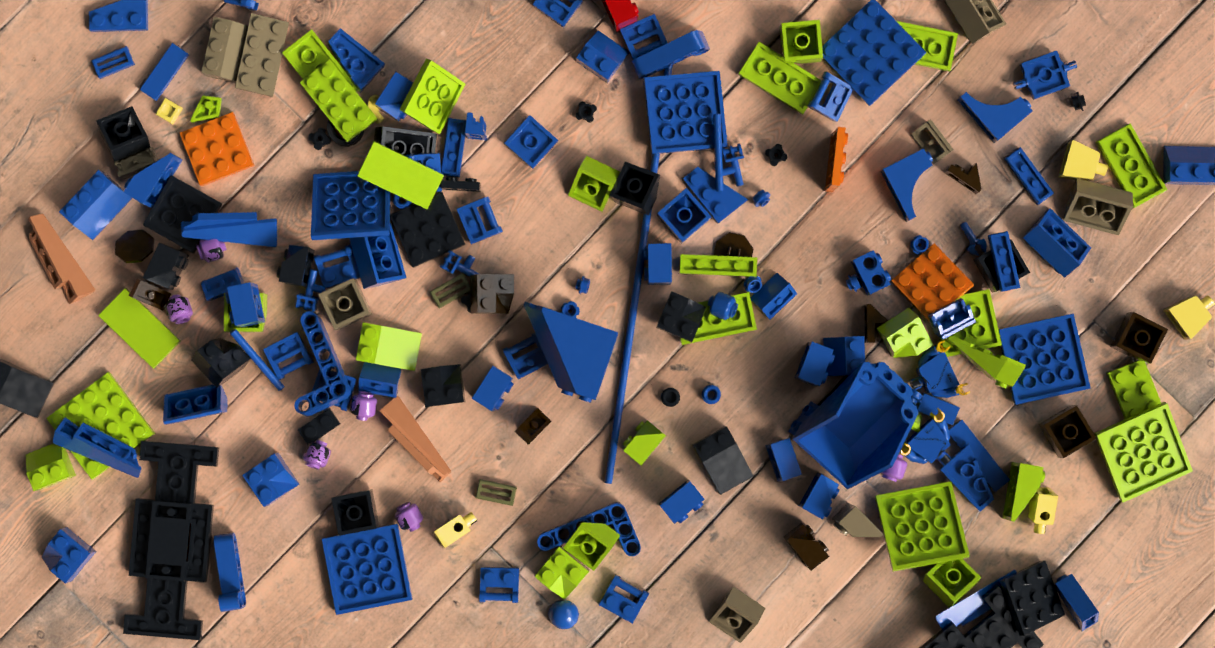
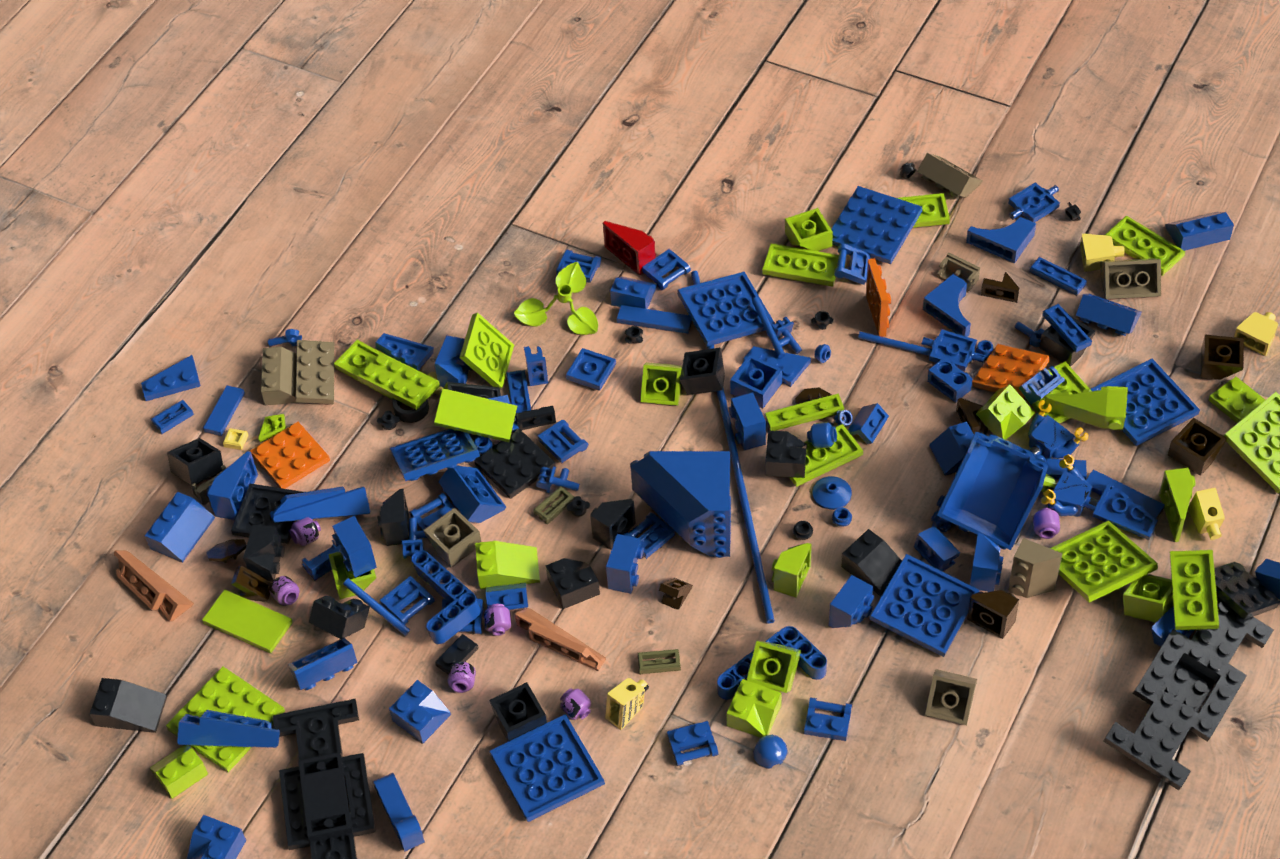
camera: 15 degrees left, 35 degrees down
(491, 293) = (593, 486): dark brown slope -> none
(496, 336) = (612, 519): none -> black slope
(540, 76) = (568, 281): none -> lime plant
(612, 97) = (654, 319): none -> blue tile
(671, 53) = (696, 267): blue beam -> none
(702, 361) = (832, 498): none -> blue dish
(749, 517) = (924, 605): none -> blue plate
(814, 364) = (930, 458): blue slope -> none
(836, 207) = (894, 343): none -> blue bar
(853, 282) = (937, 392): blue plate -> none
(888, 236) = (954, 348): none -> blue plate
(987, 598) = (1194, 590): none -> lime plate

